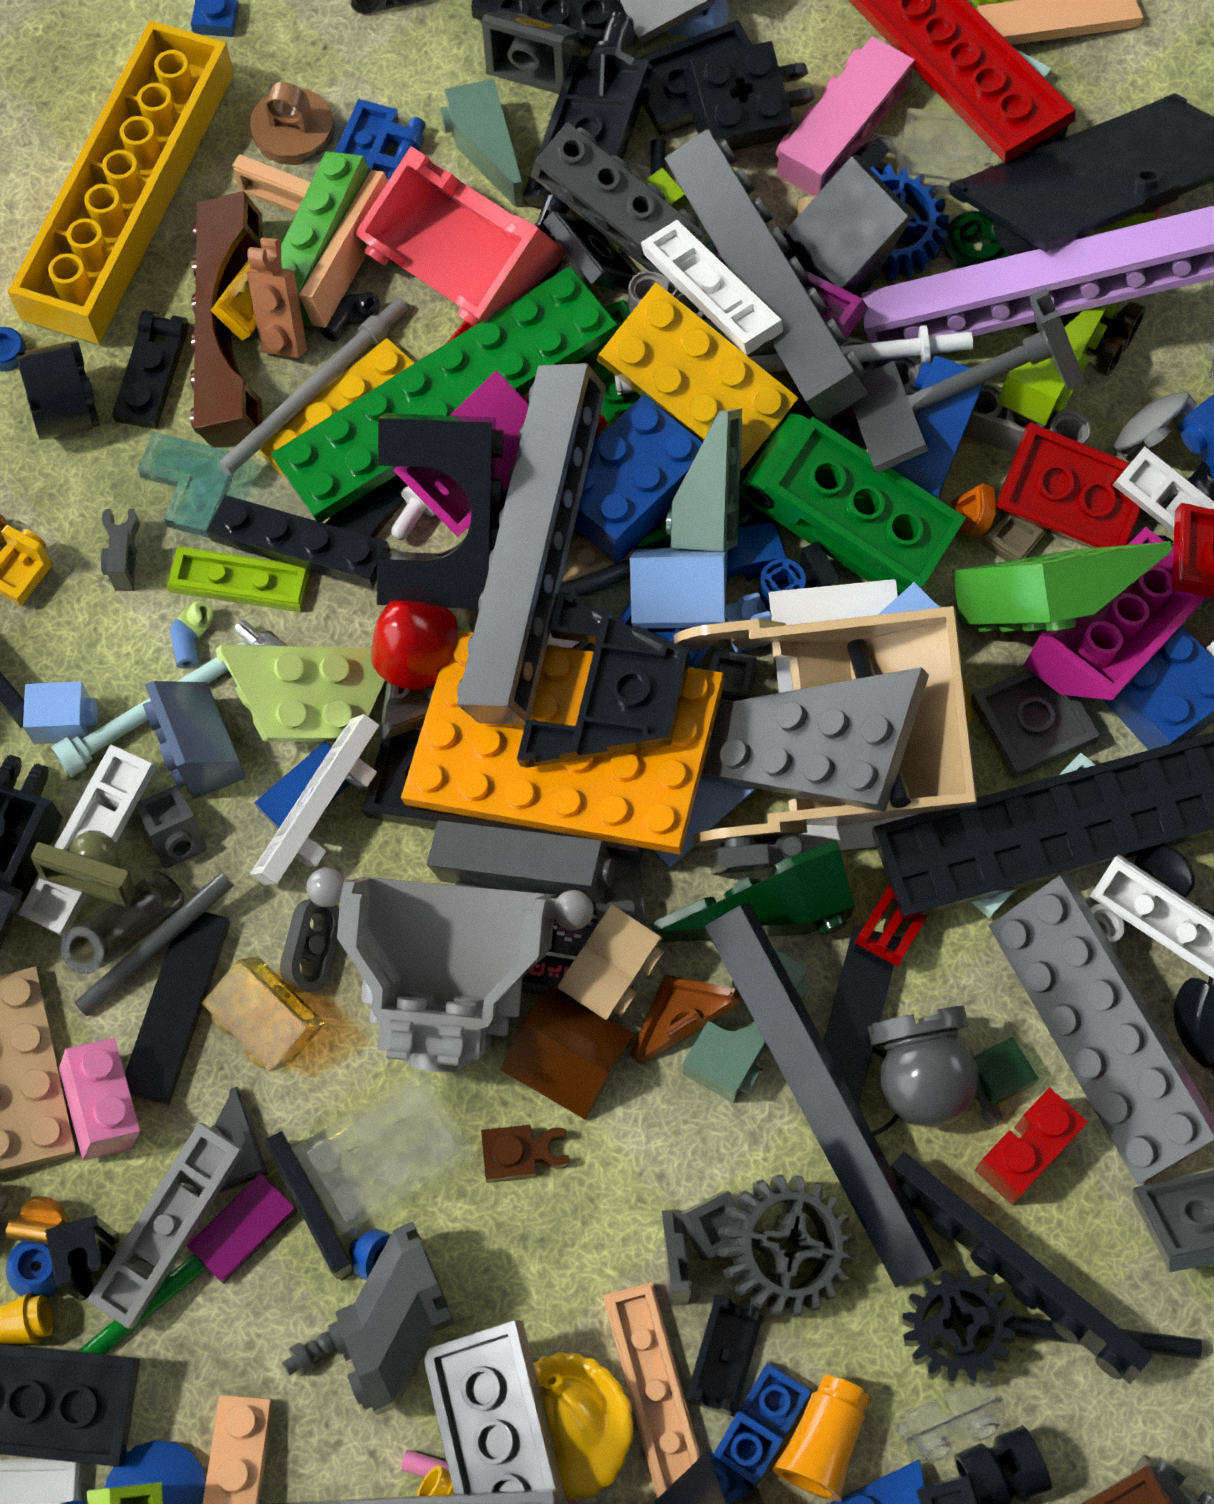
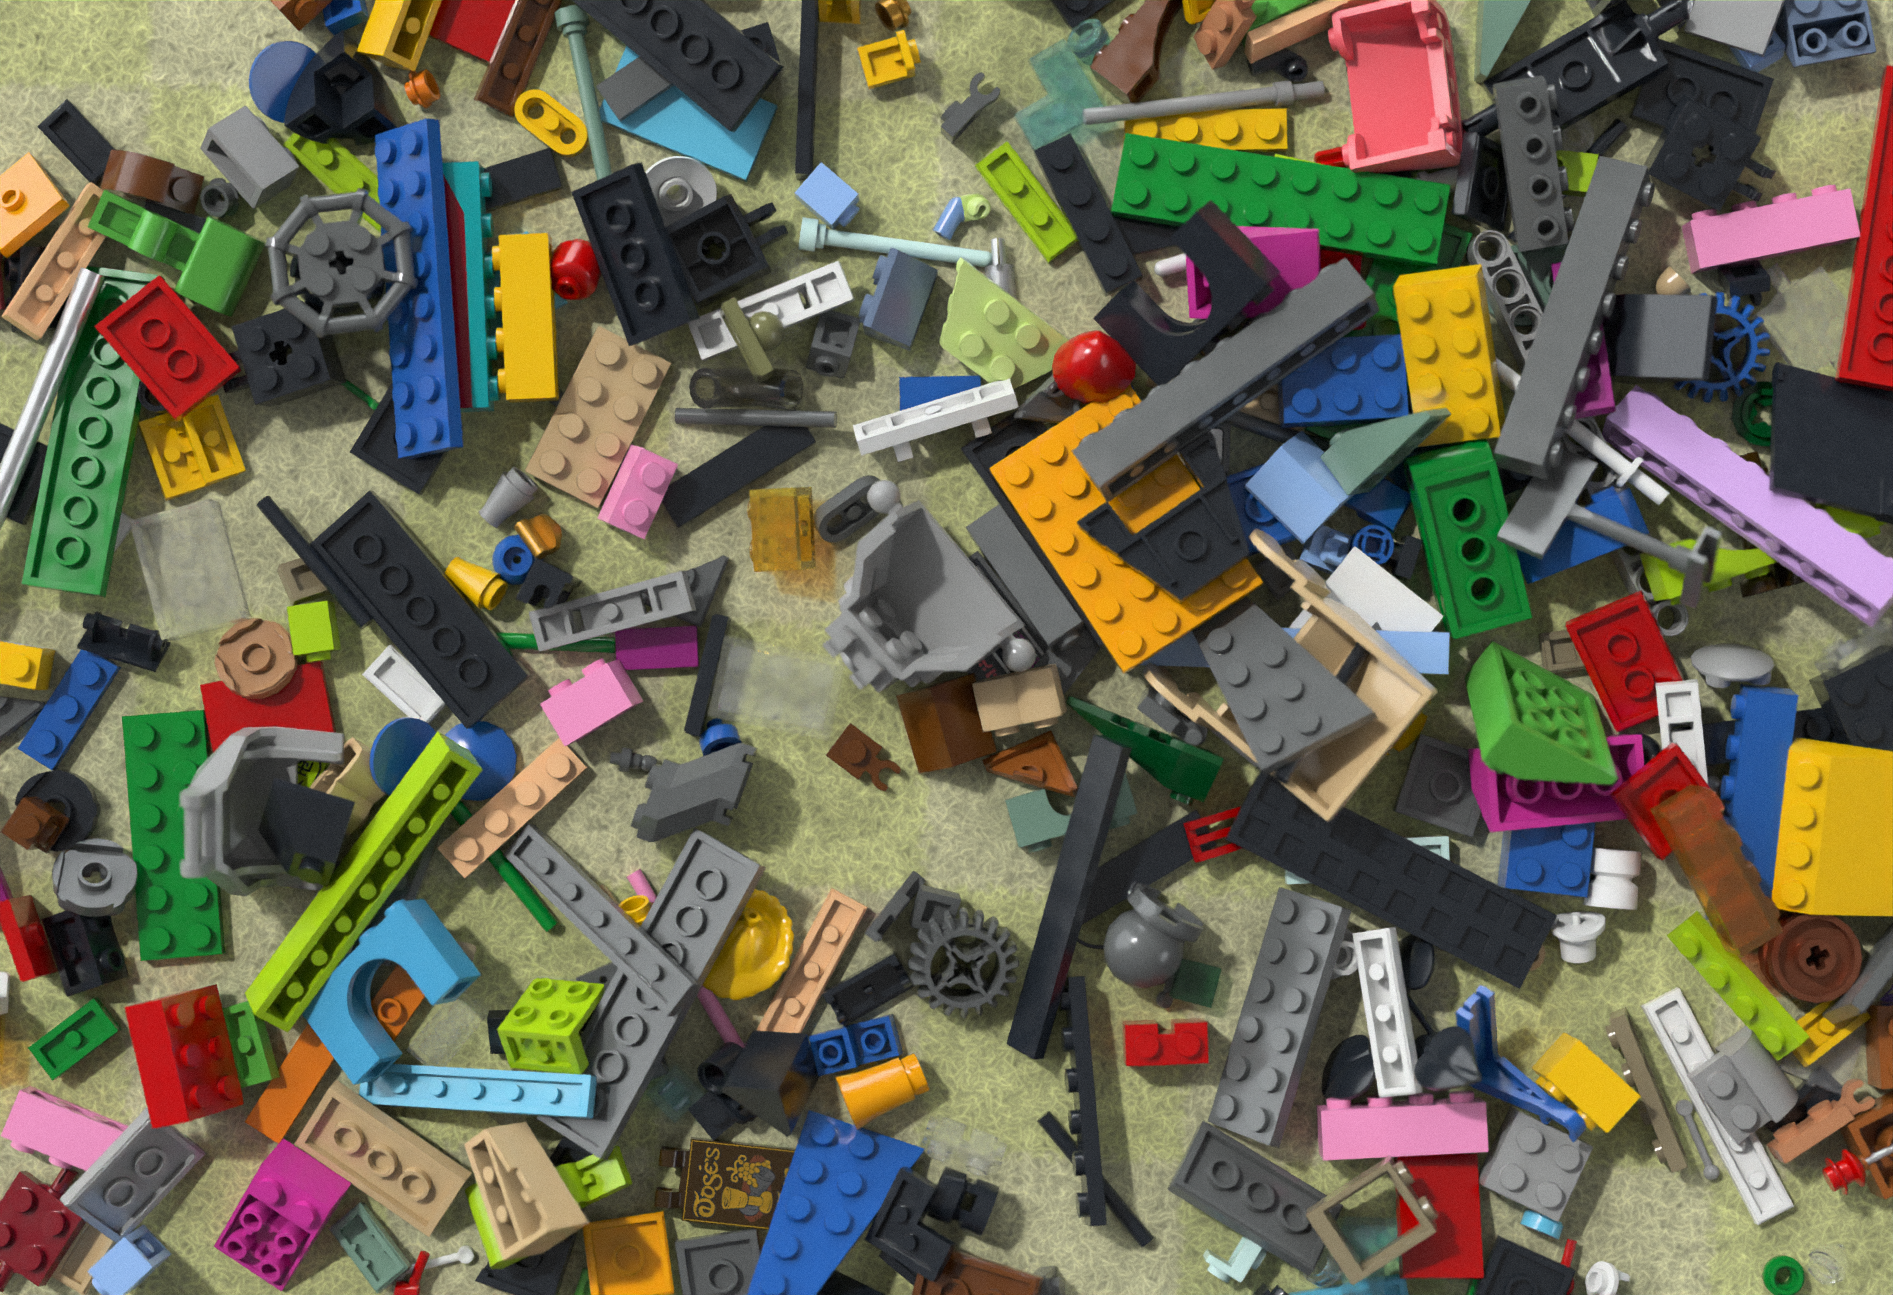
camera: 40 degrees right, 20 degrees up
(174, 417) = (1088, 39): none -> clear light blue tile
(218, 1330) = (591, 701): none -> bright pink brick
(712, 287) = (1521, 301): white hinge -> none
(938, 1330) = (1033, 1112): black gear -> none
(978, 508) = (1551, 611): orange tile -> none

